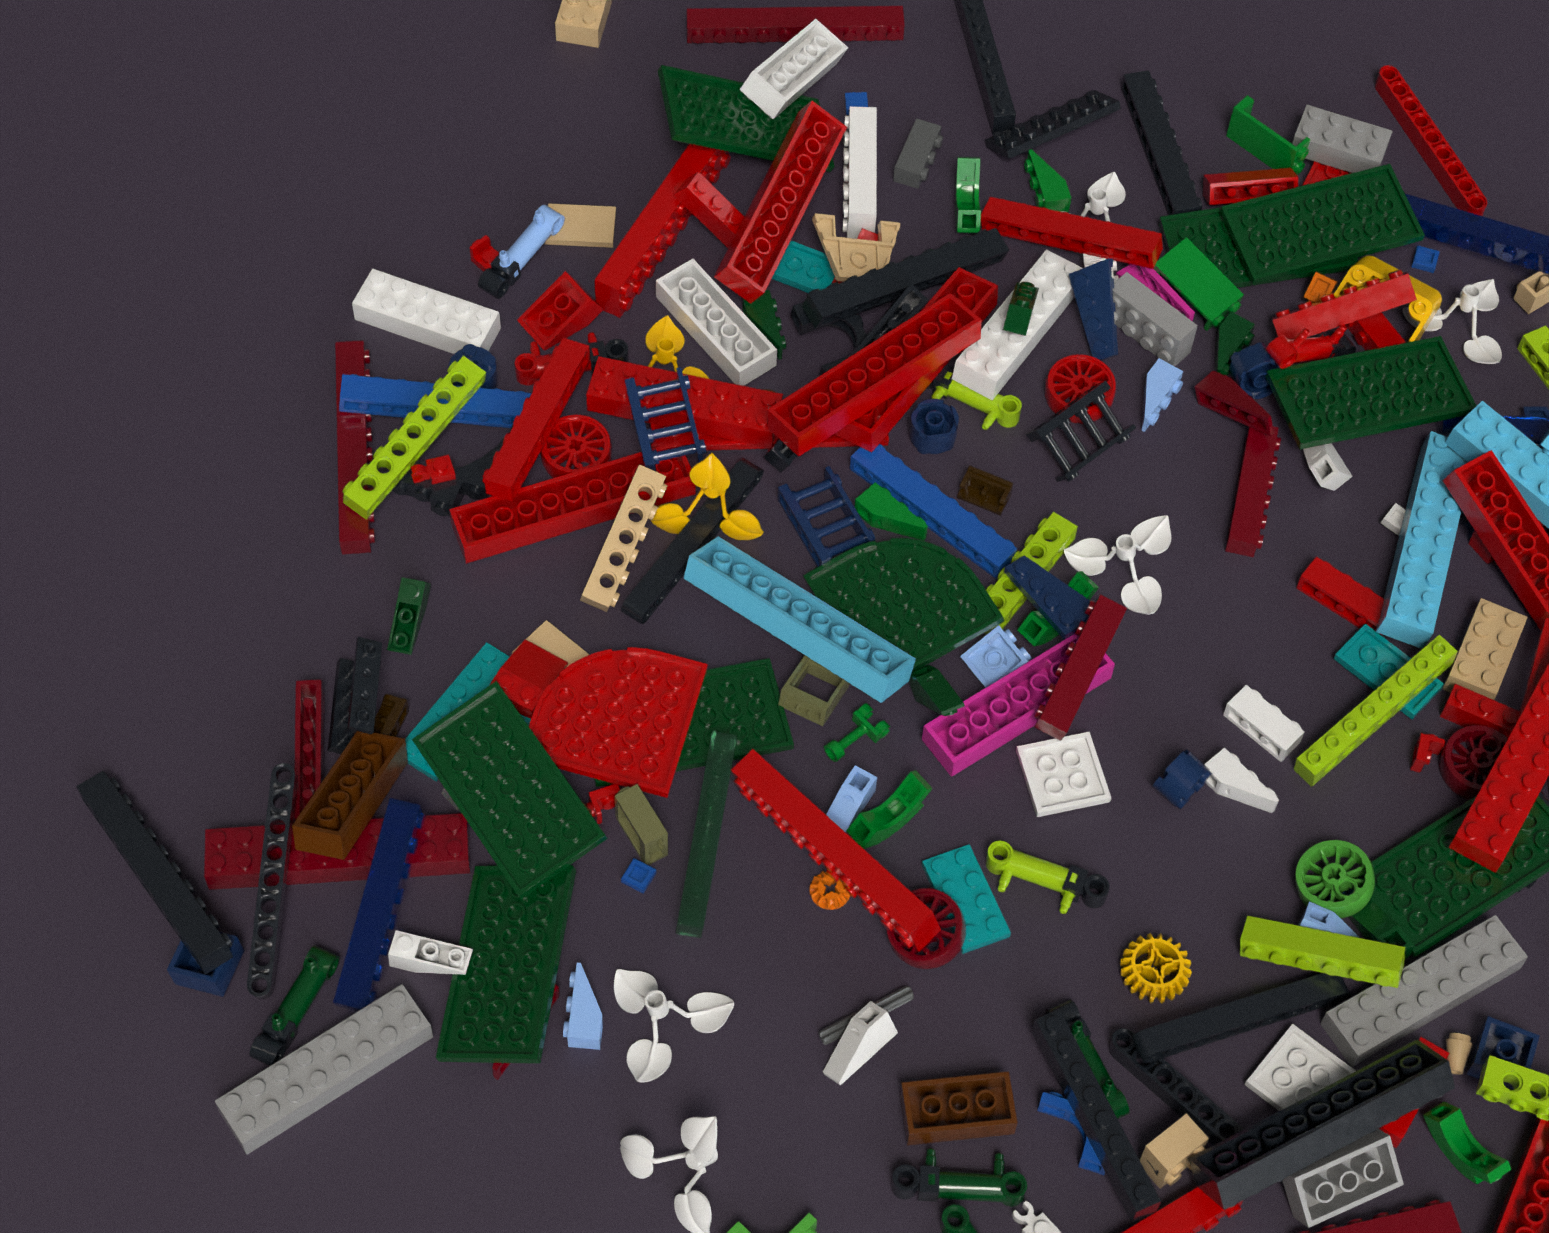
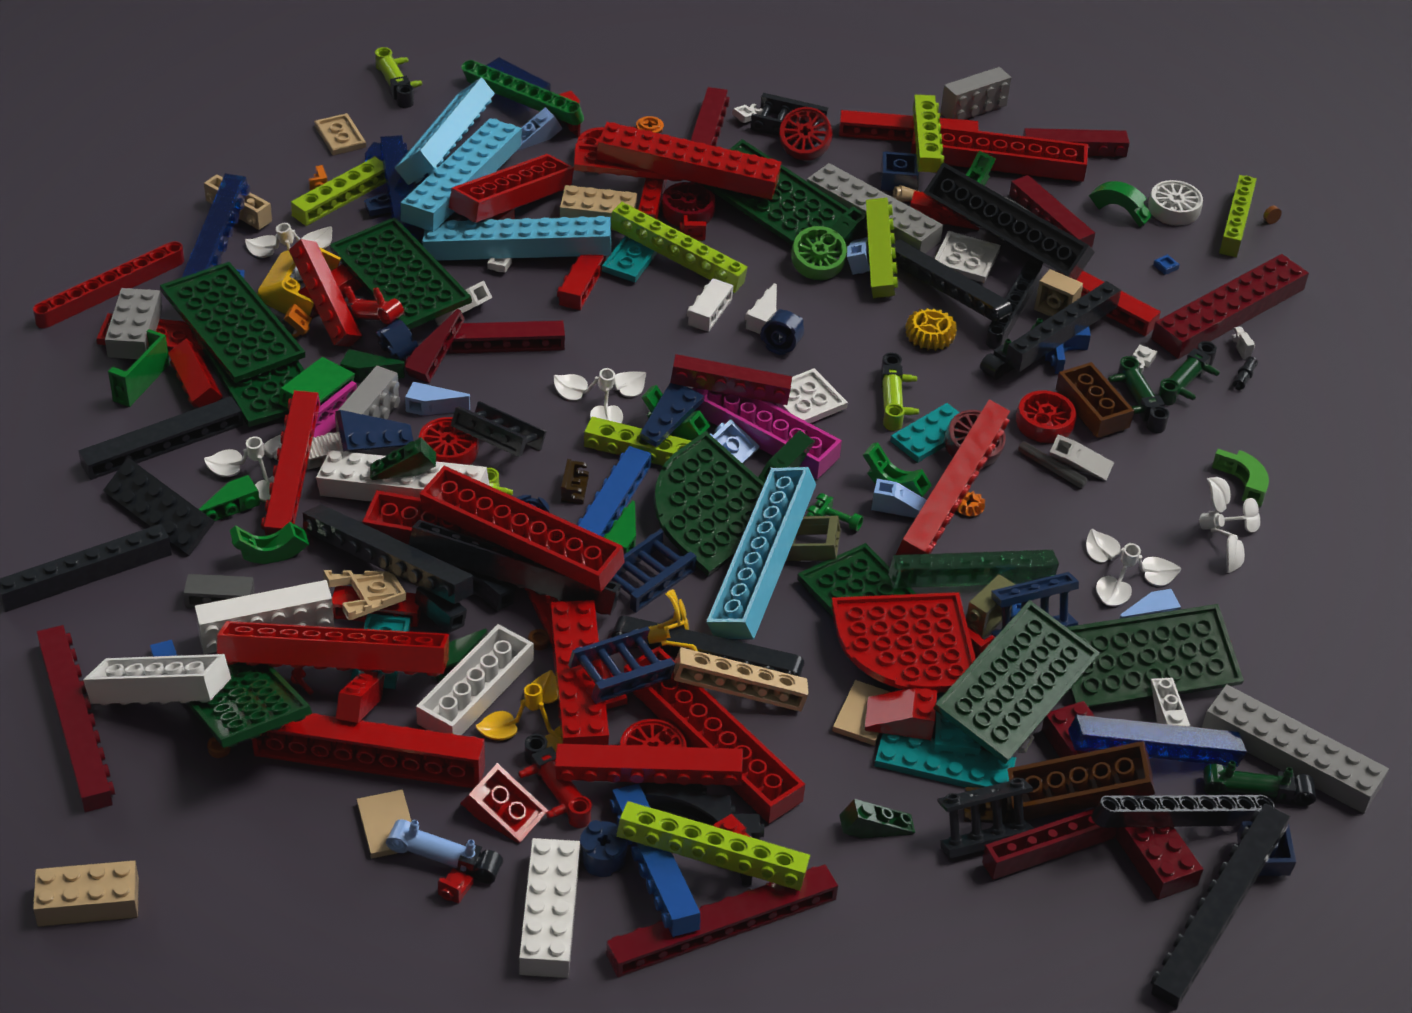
camera: 110 degrees left, 15 degrees down
(615, 864) = (1036, 589): none -> dark blue fence
(936, 1013) = (1045, 415): none -> red piece

